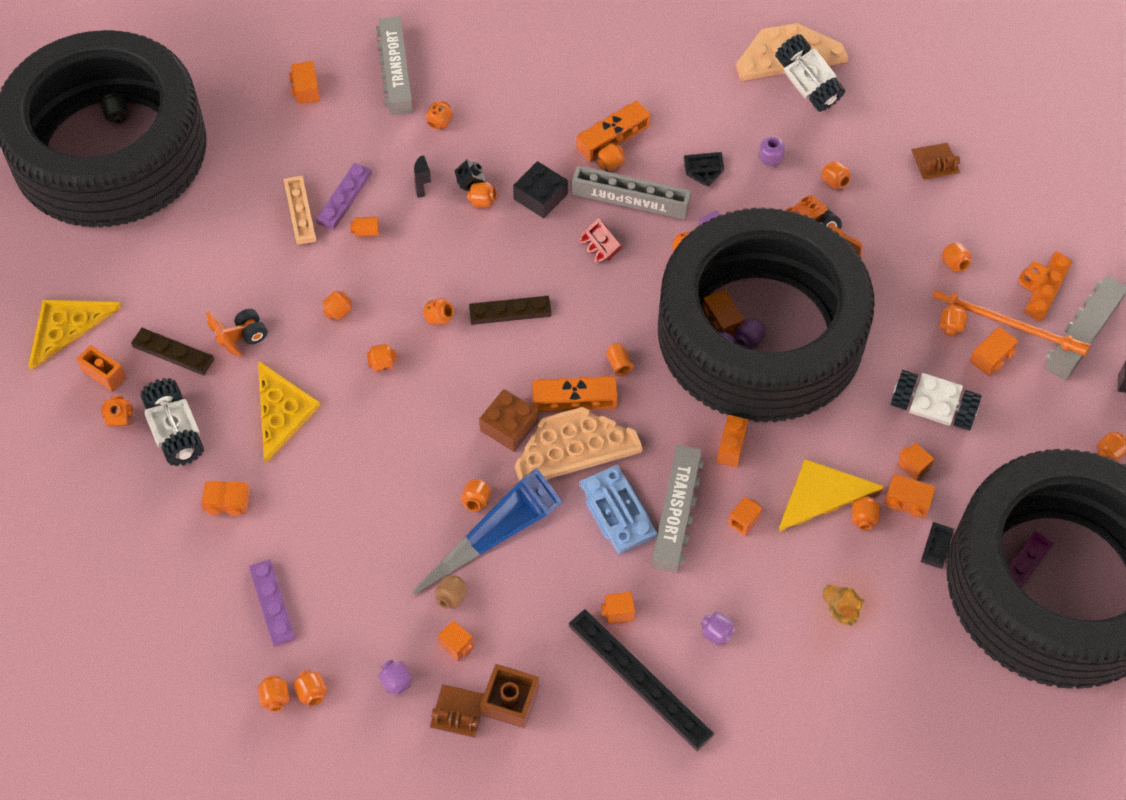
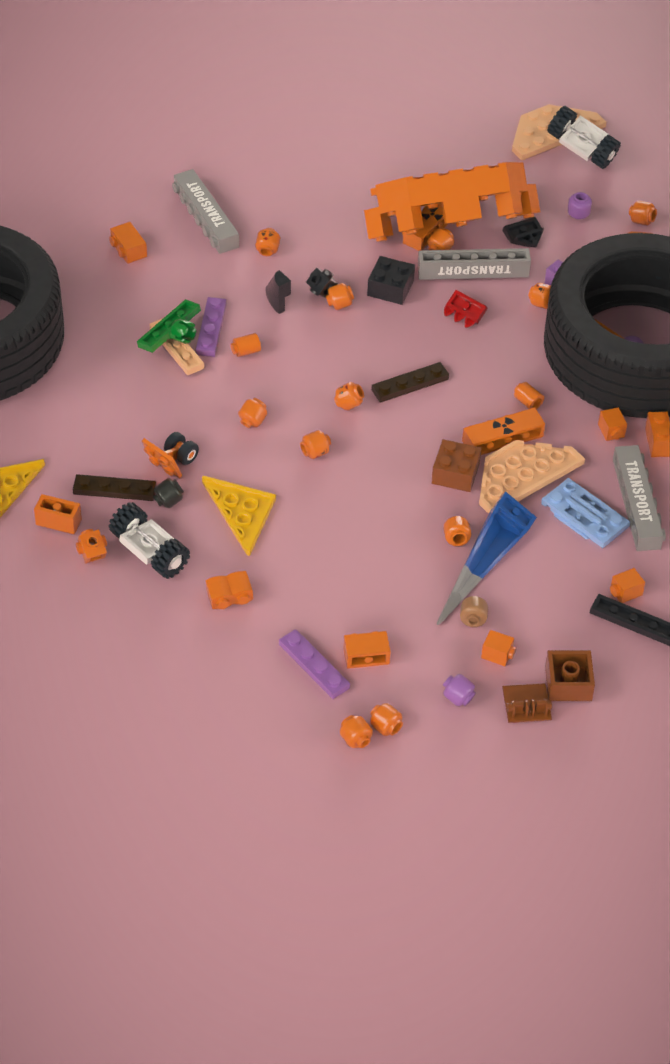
camera: 20 degrees left, 10 degrees down
(216, 373) = (168, 493): none -> pearl dark grey head
(298, 190) = (173, 326): none -> green plate
(326, 603) = (366, 649): none -> orange brick
(636, 115) = (458, 193): none -> orange brick
(690, 415) = (612, 424): none -> orange brick

